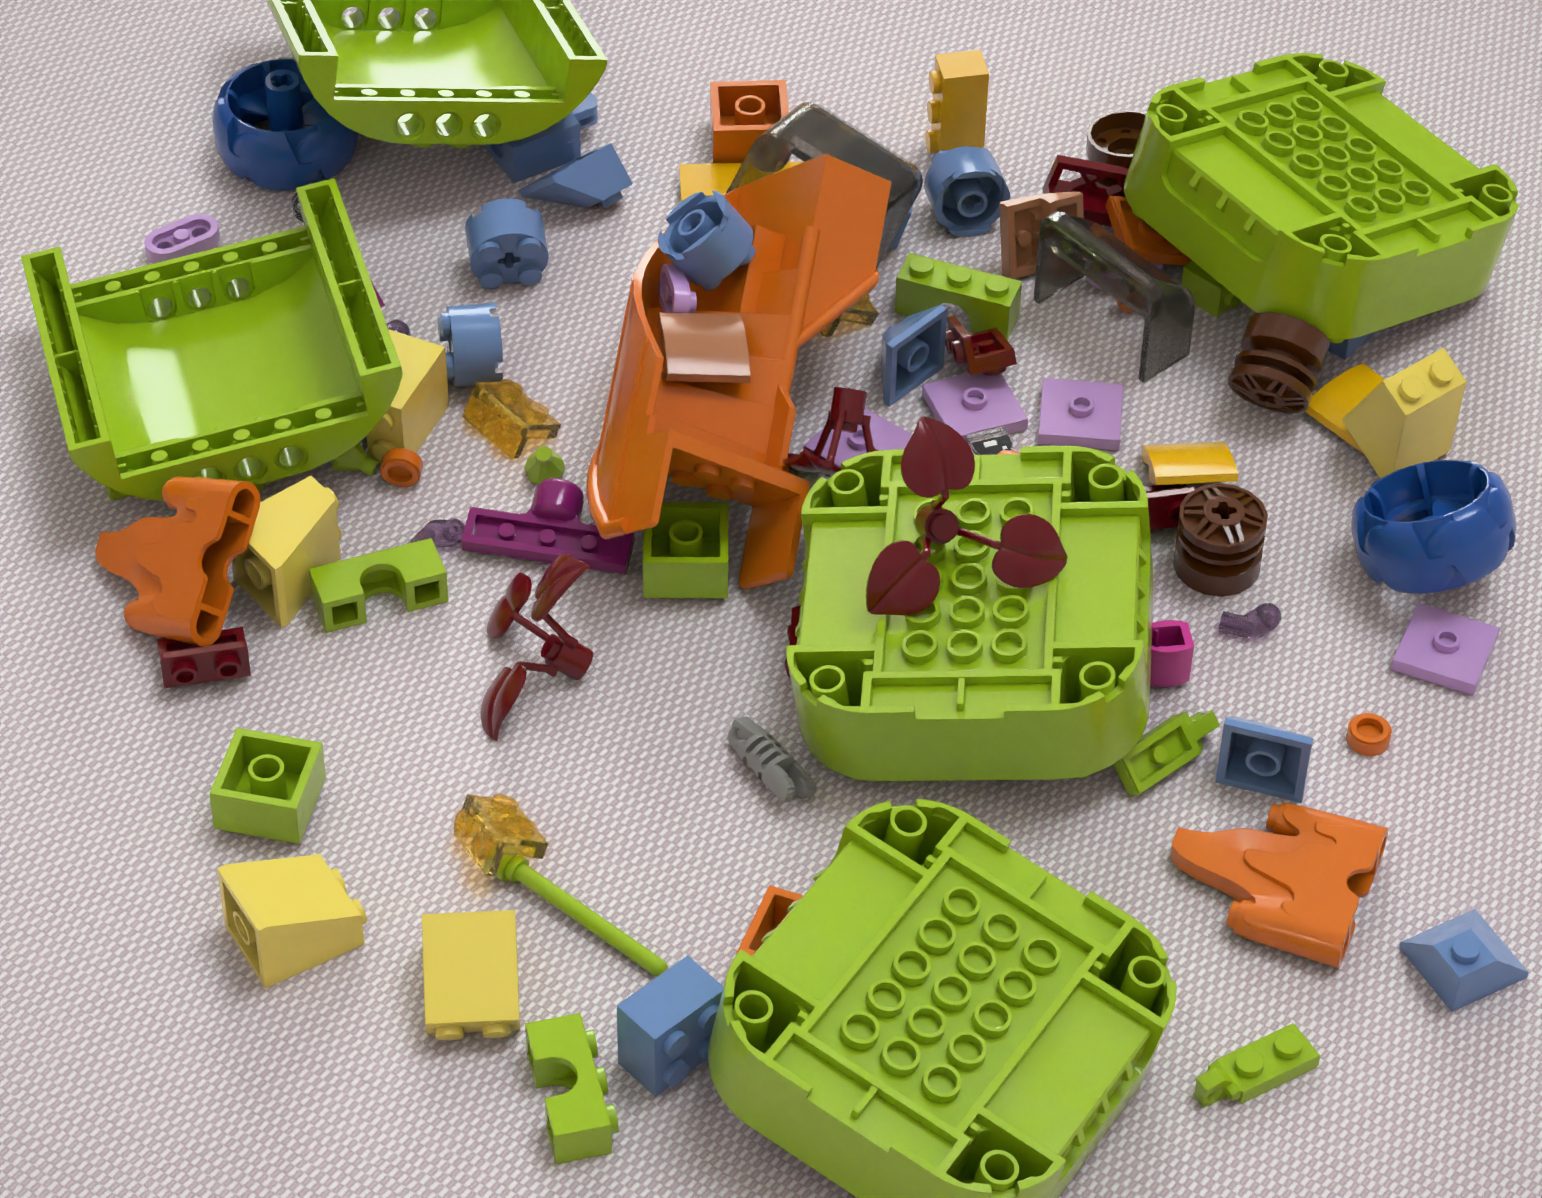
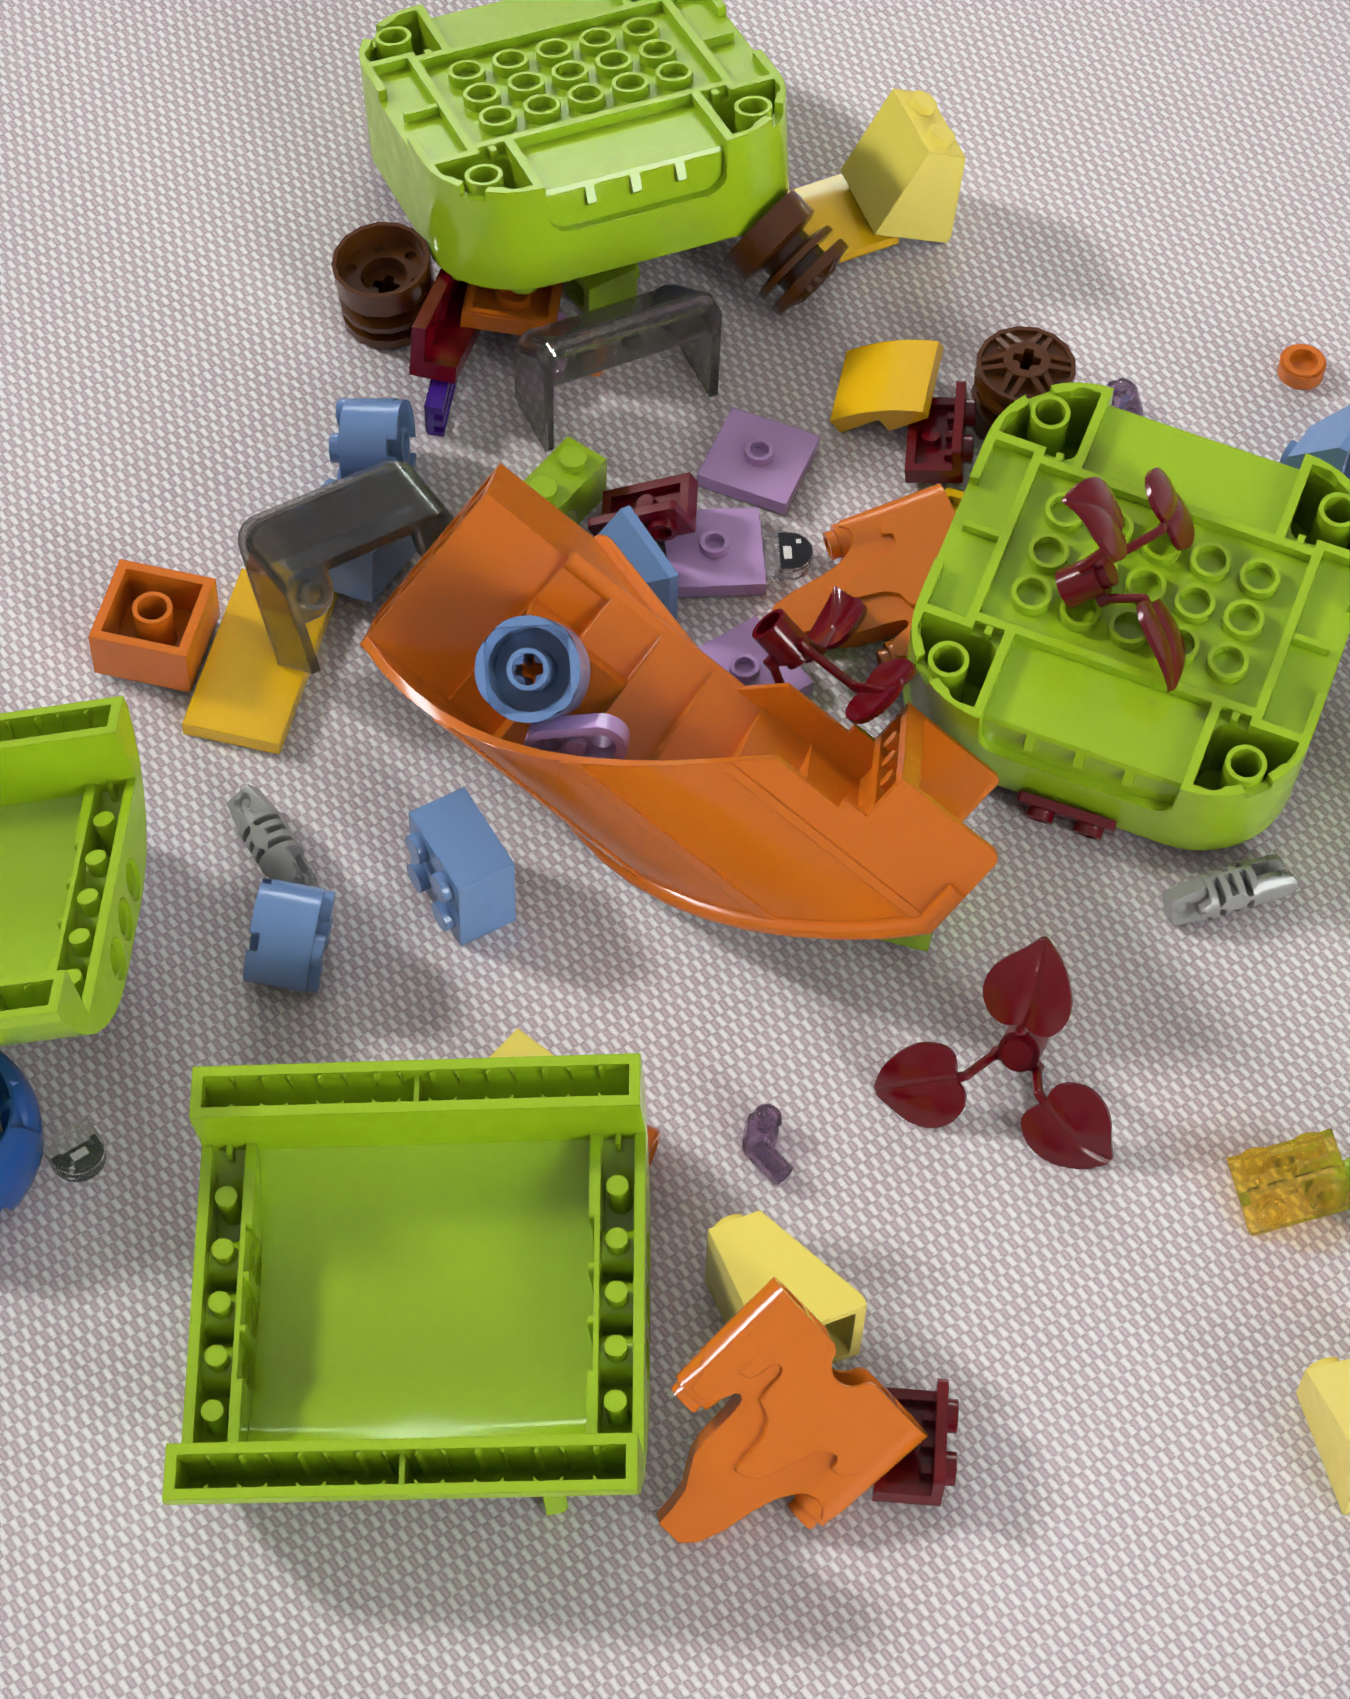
camera: 75 degrees left, 10 degrees up
(182, 238) = (97, 1325): lavender plate -> none
(268, 785) = (1169, 1407): lime brick -> none
(407, 571) = (837, 1177): lime arch -> none
(472, 343) = (465, 1009): medium blue brick -> none
(508, 416) = (583, 1012): clear yellow bracket -> none
(544, 465) = (678, 998): lime rock -> none
(547, 531) = (803, 1017): magenta plate -> none
(583, 181) = (183, 827): medium blue slope -> none
(591, 314) = (461, 867): none -> medium blue brick
(594, 230) = (269, 838): none -> light grey hinge
(704, 347) = (688, 723): nougat slope -> none
(958, 101) = (254, 403): yellow brick -> none
(1021, 224) = (486, 397): nougat slope -> none
(1434, 526) = (1097, 245): blue wheel -> none
(1445, 649) = (1200, 268): lavender plate -> none

